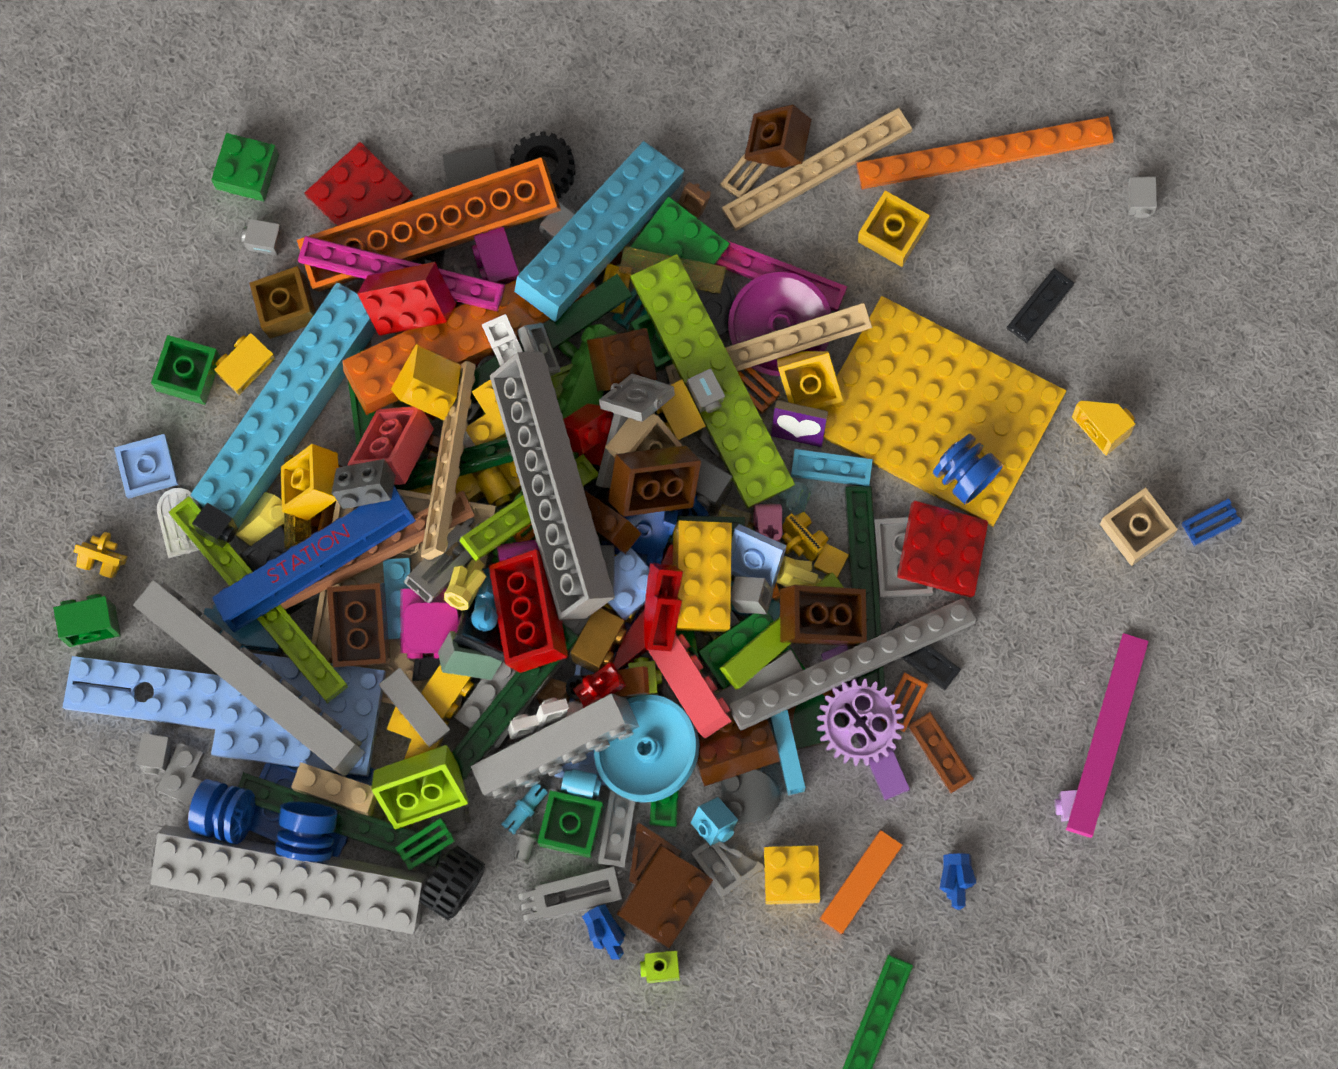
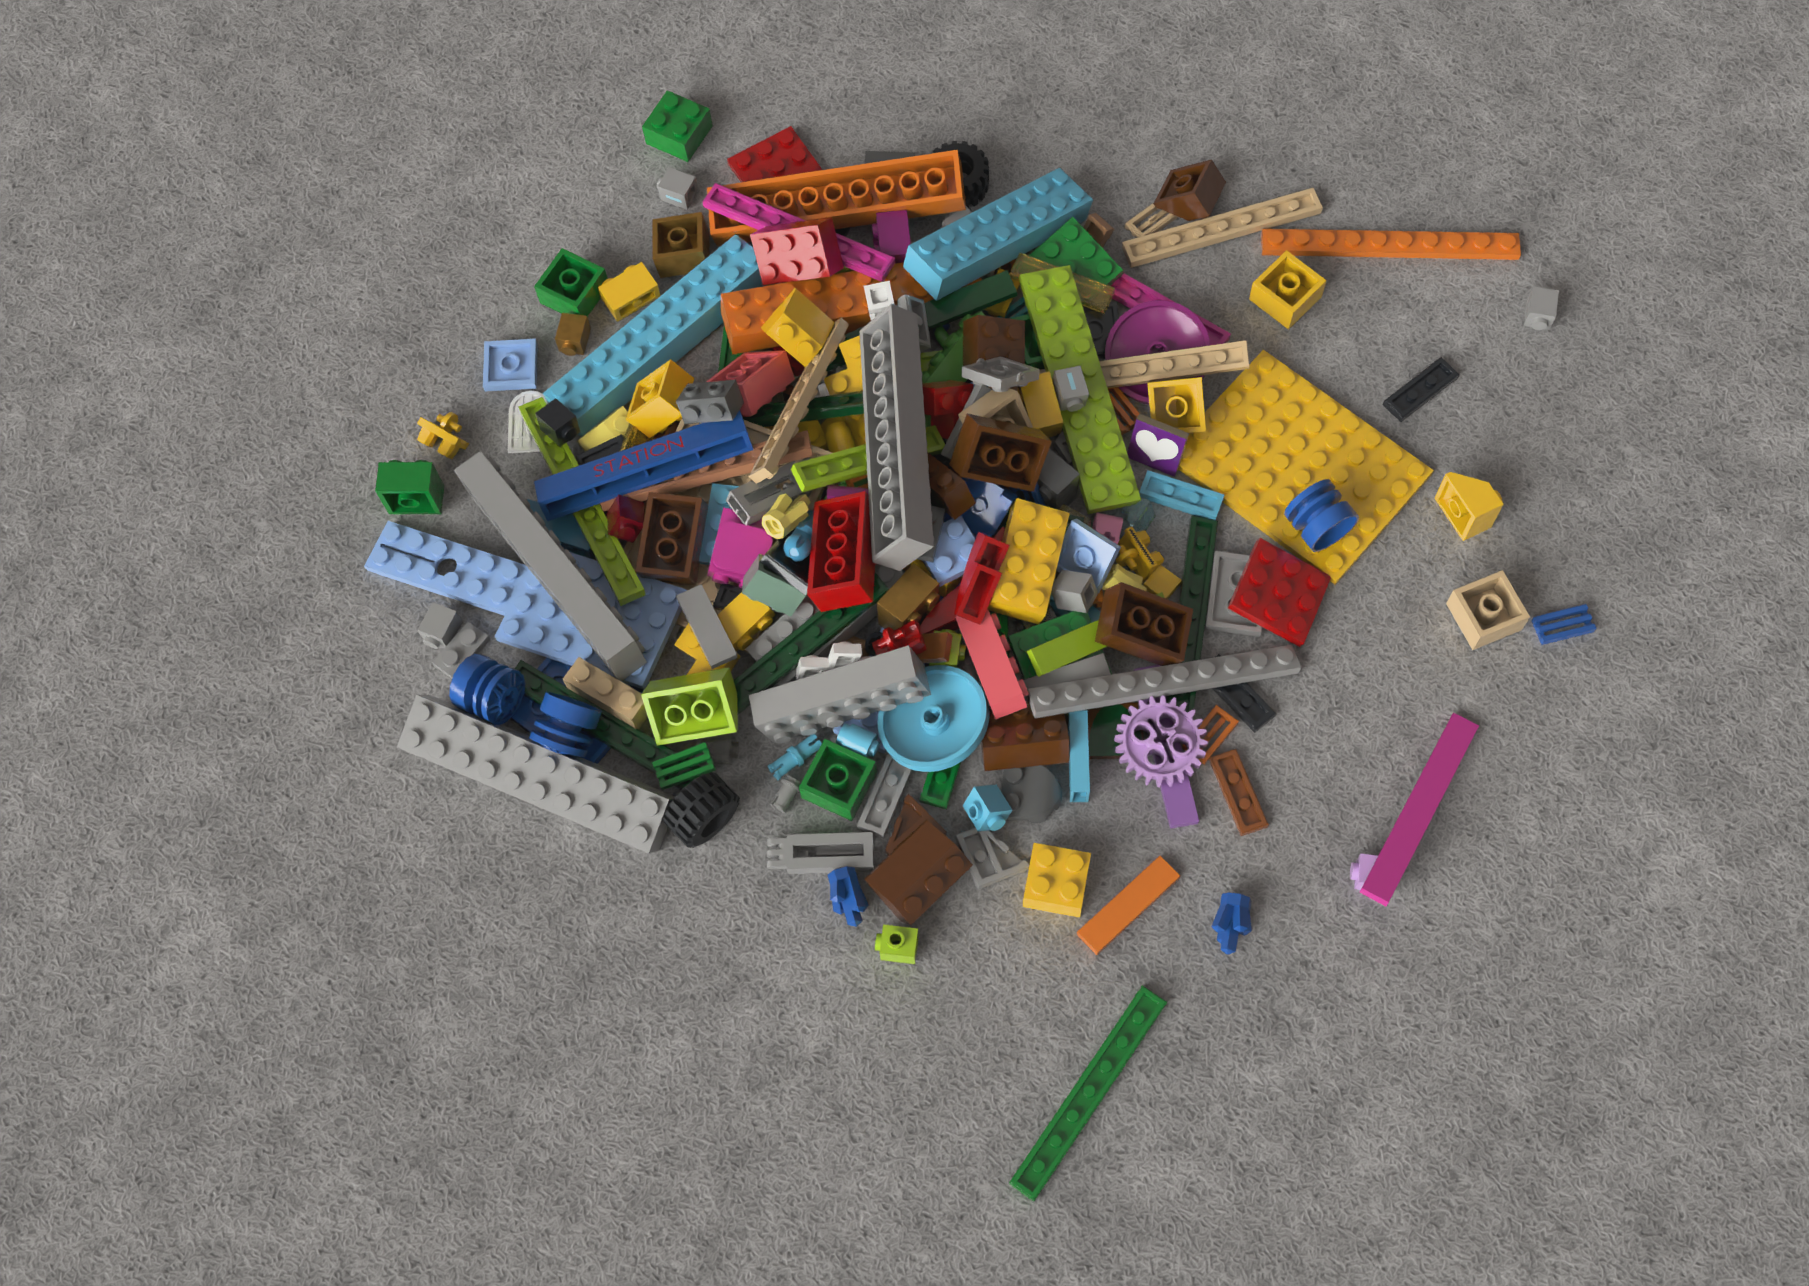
camera: 10 degrees right, 10 degrees down
(200, 421) = (572, 334): none -> pearl gold brick
(309, 613) = (625, 518): none -> dark red brick

